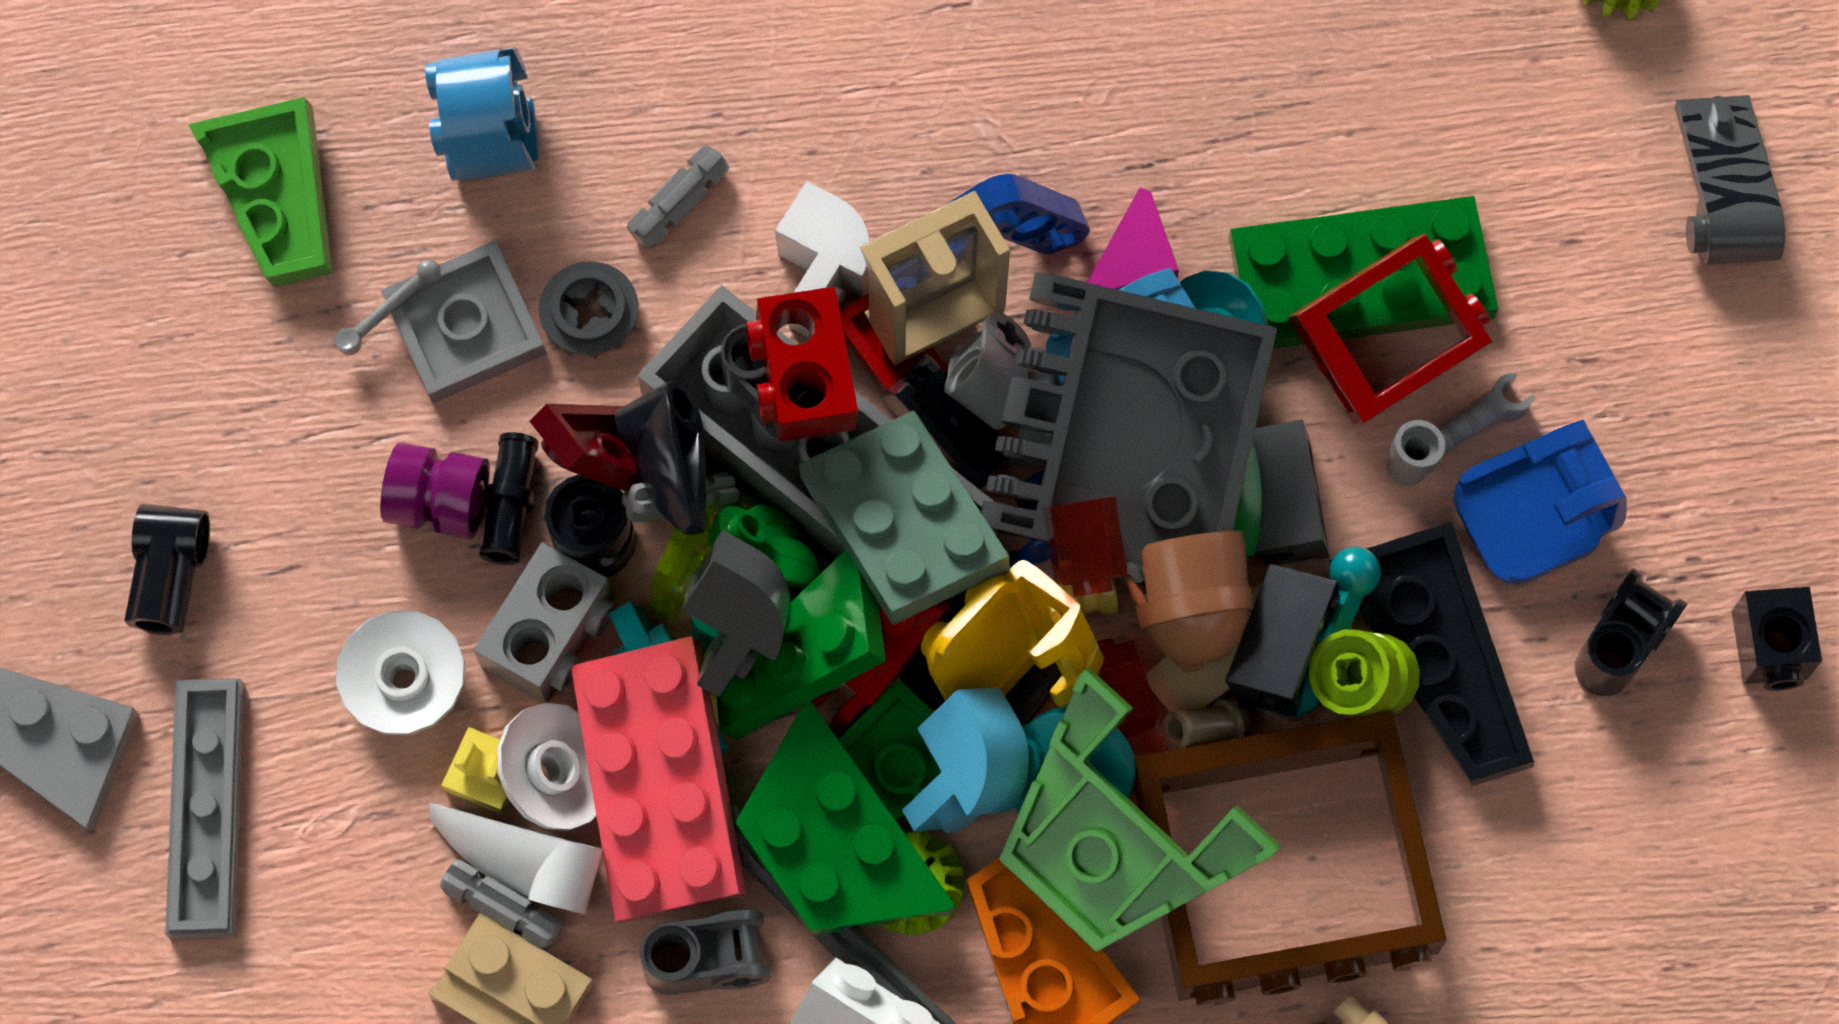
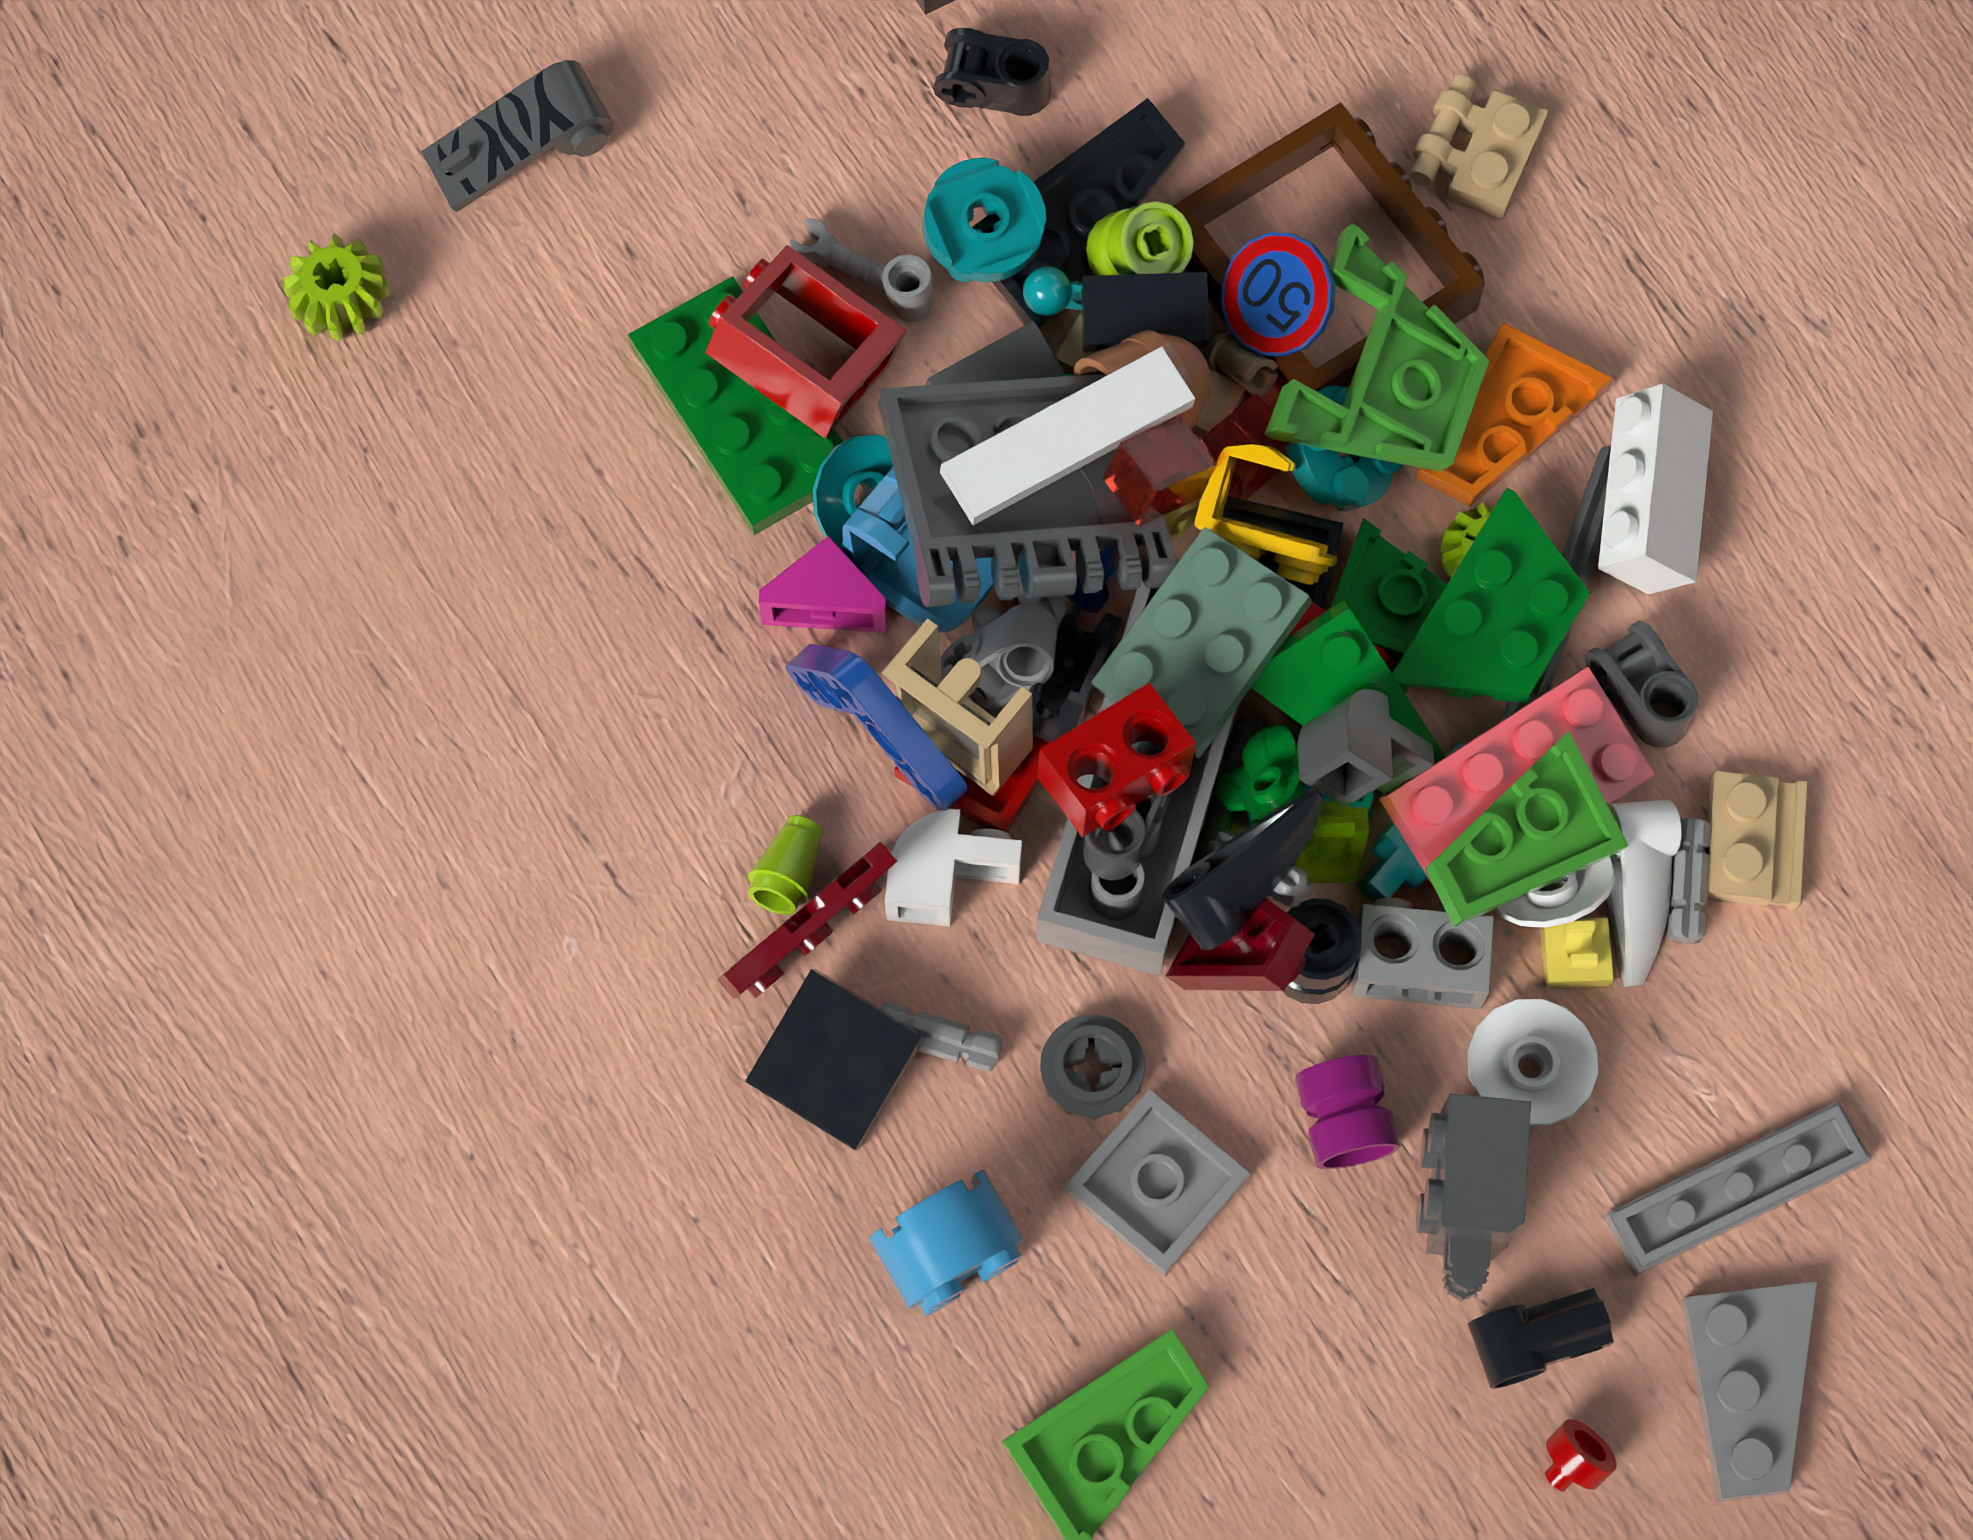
camera: 115 degrees left, 0 degrees up
(49, 551) = (1578, 1457): none -> red tile
(309, 554) = (1475, 1185): none -> dark grey hinge
(350, 340) = (1231, 1275): light grey hinge -> none
(509, 498) = (1316, 1045): black pin -> none
(590, 742) = (1528, 838): none -> bright green wing
(695, 101) = (835, 1059): none -> black tile
(823, 121) = (808, 925): none -> dark red wing
(889, 133) = (787, 866): none -> lime cone
(980, 759) = (1373, 513): medium azure brick -> none
(1148, 460) = (1066, 435): none -> white tile
(1243, 762) = (1278, 294): none -> piece
(1425, 564) = (999, 191): none -> teal plate
(1540, 504) = (893, 161): blue piece -> none

